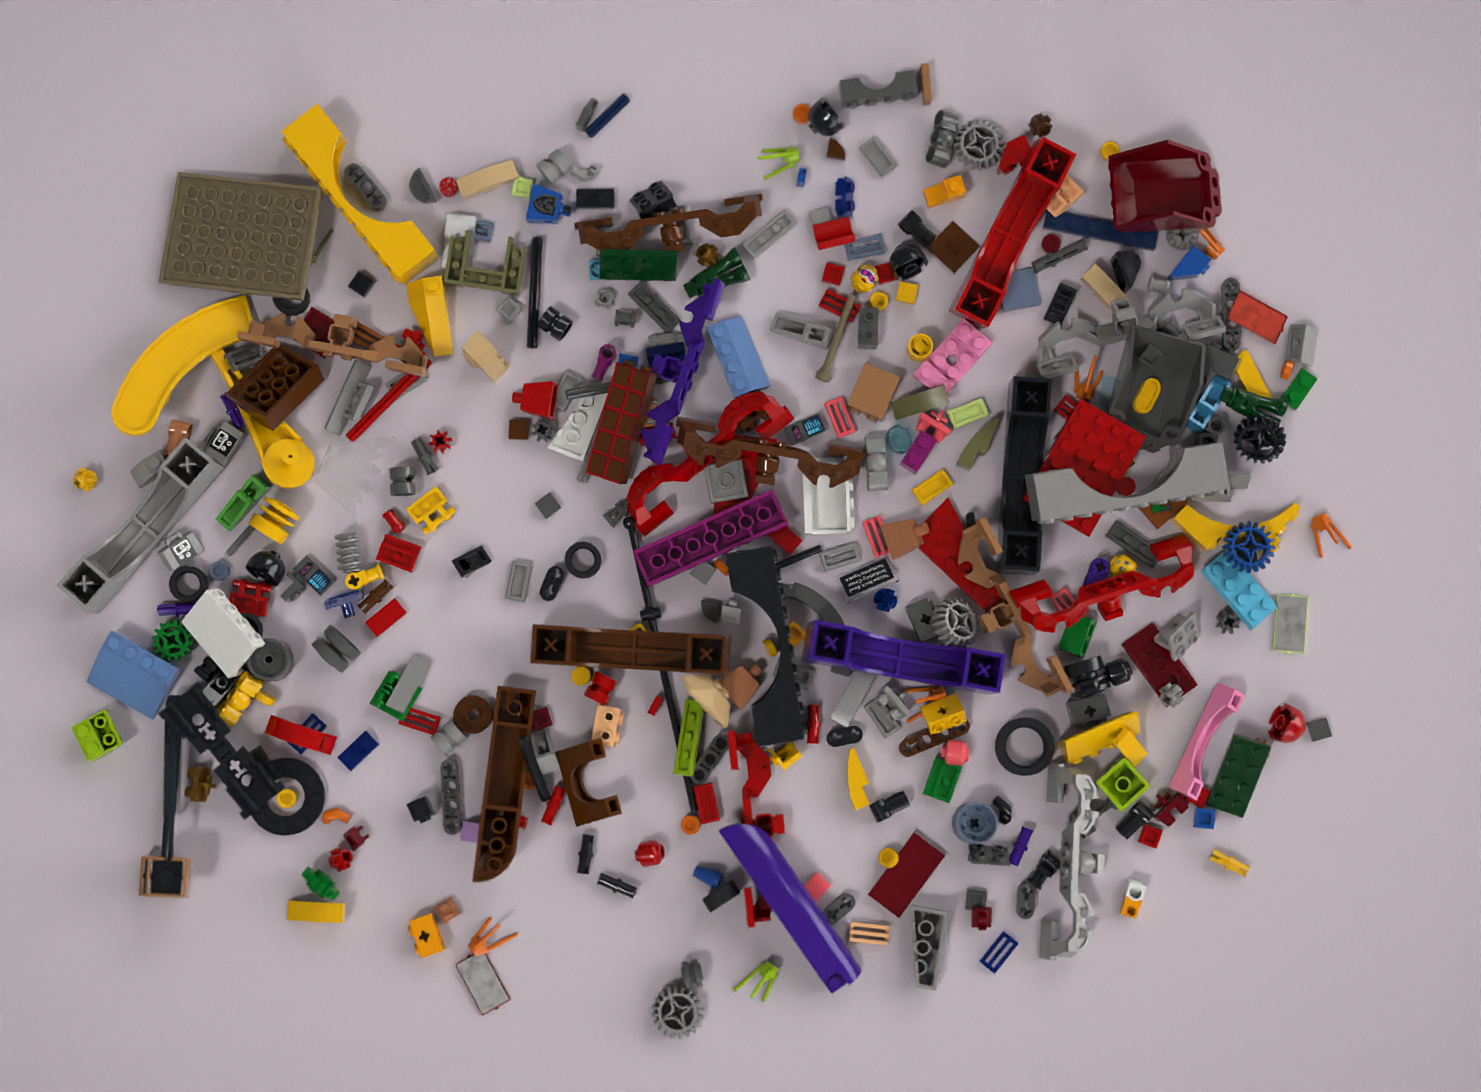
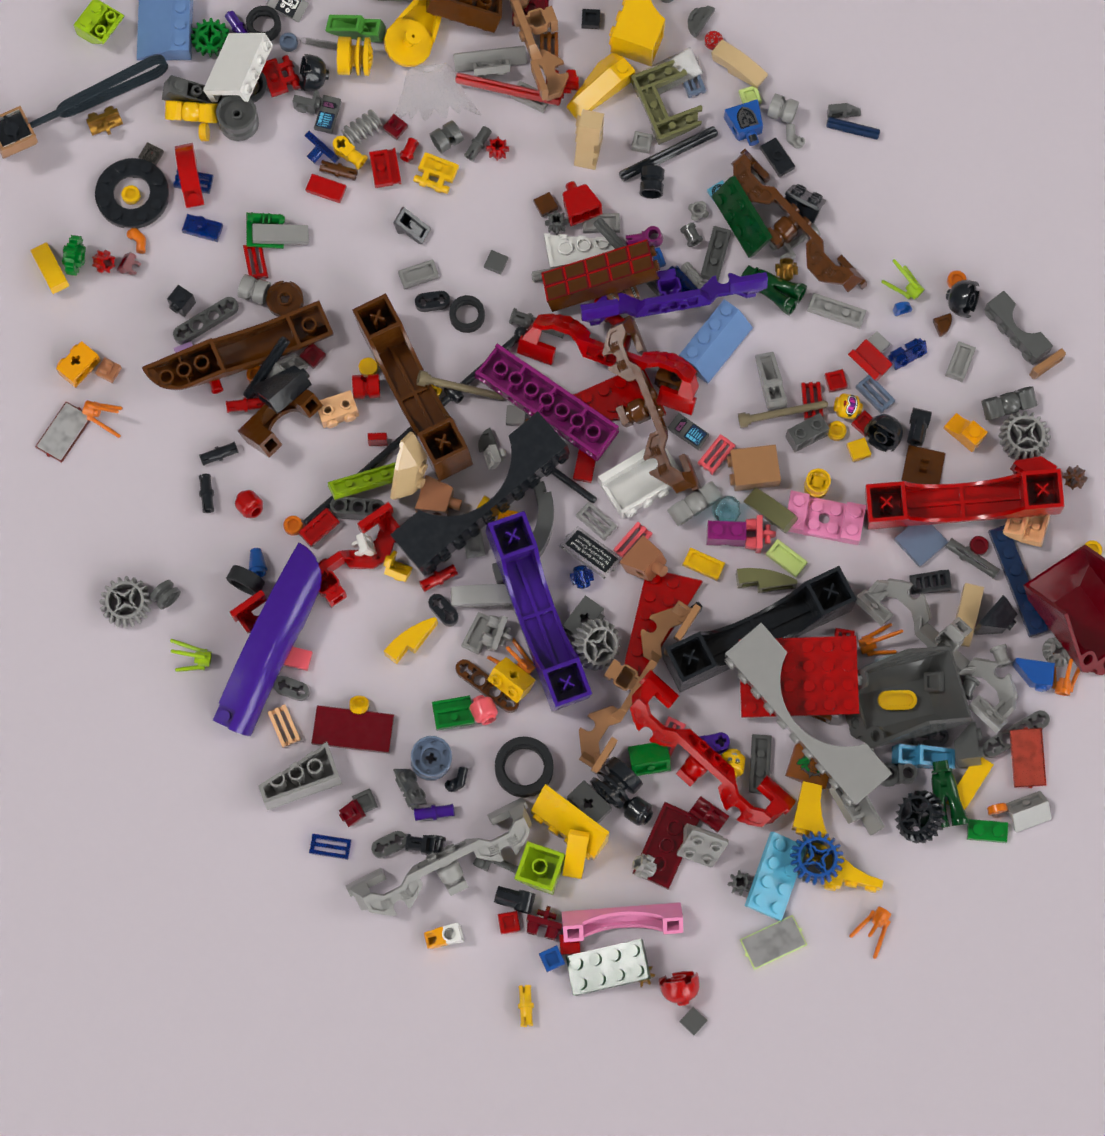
camera: 60 degrees right, 10 degrees down
(207, 669) = (200, 75): black wheel -> none
(246, 797) = (148, 71): black piece -> none
(334, 651) = (276, 160): dark grey wheel -> none
(362, 521) = (395, 127): none -> dark red tile
(564, 765) = (282, 388): none -> black slope
(627, 634) = (425, 379): none -> dark tan piece
(726, 482) = (603, 389): light grey tile -> none
(748, 771) = (365, 544): none -> white tile
(886, 807) = (399, 677): black piece -> none
(1126, 487) = (808, 726): red tile -> none
(1155, 613) = (709, 814): none -> dark red hips

